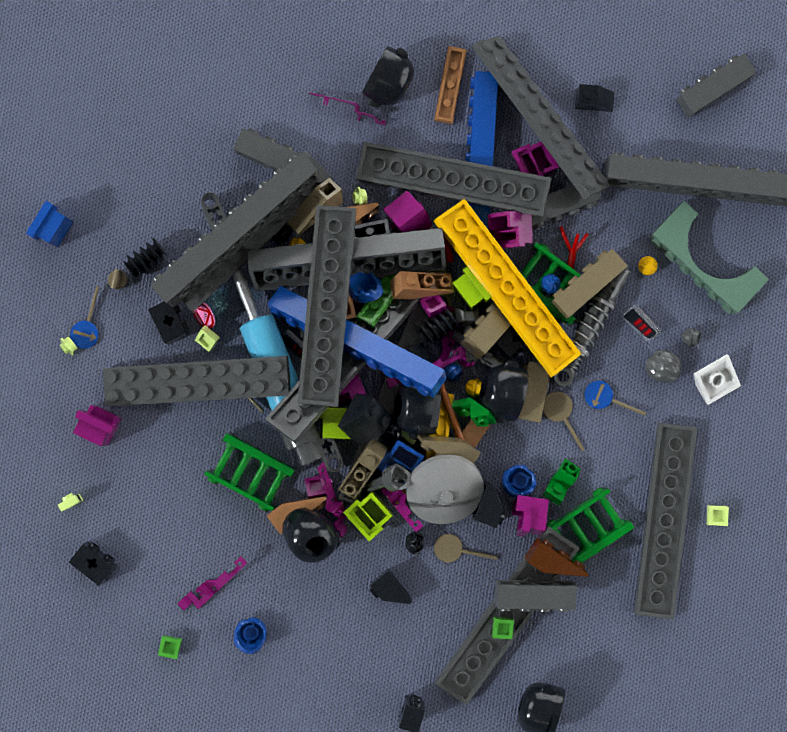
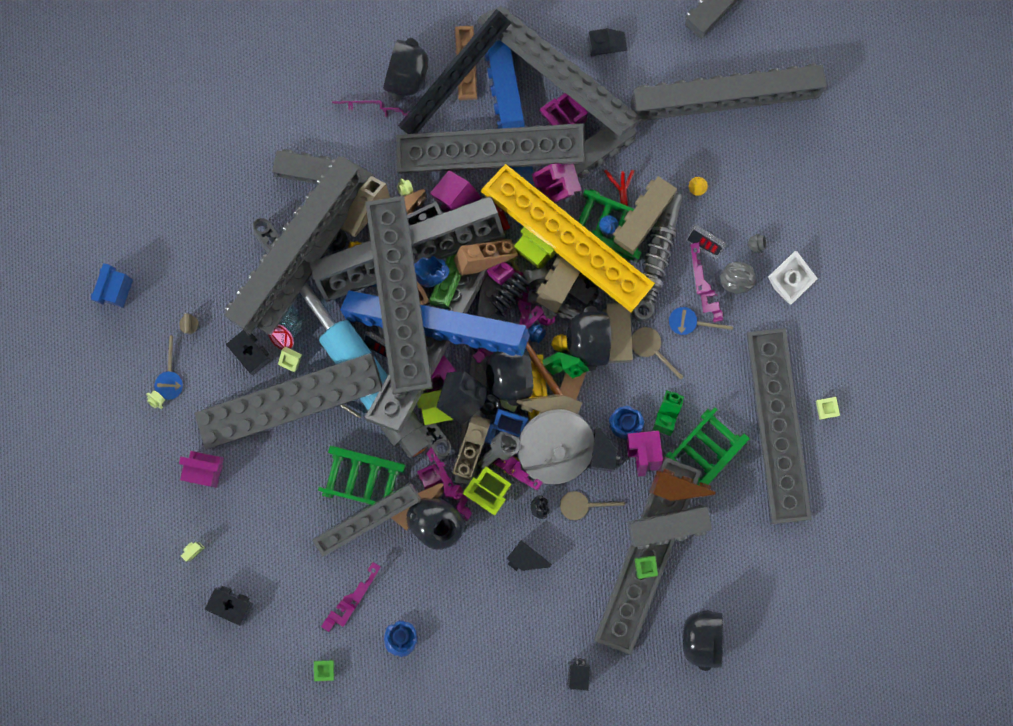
camera: 10 degrees left, 5 degrees down
(145, 258) = (211, 296): black piece -> none
(244, 514) = (366, 519): none -> dark grey plate
(437, 94) = (455, 73): none -> black plate
(630, 369) = (706, 292): none -> magenta piece
(673, 240) = (782, 192): sand green arch -> none

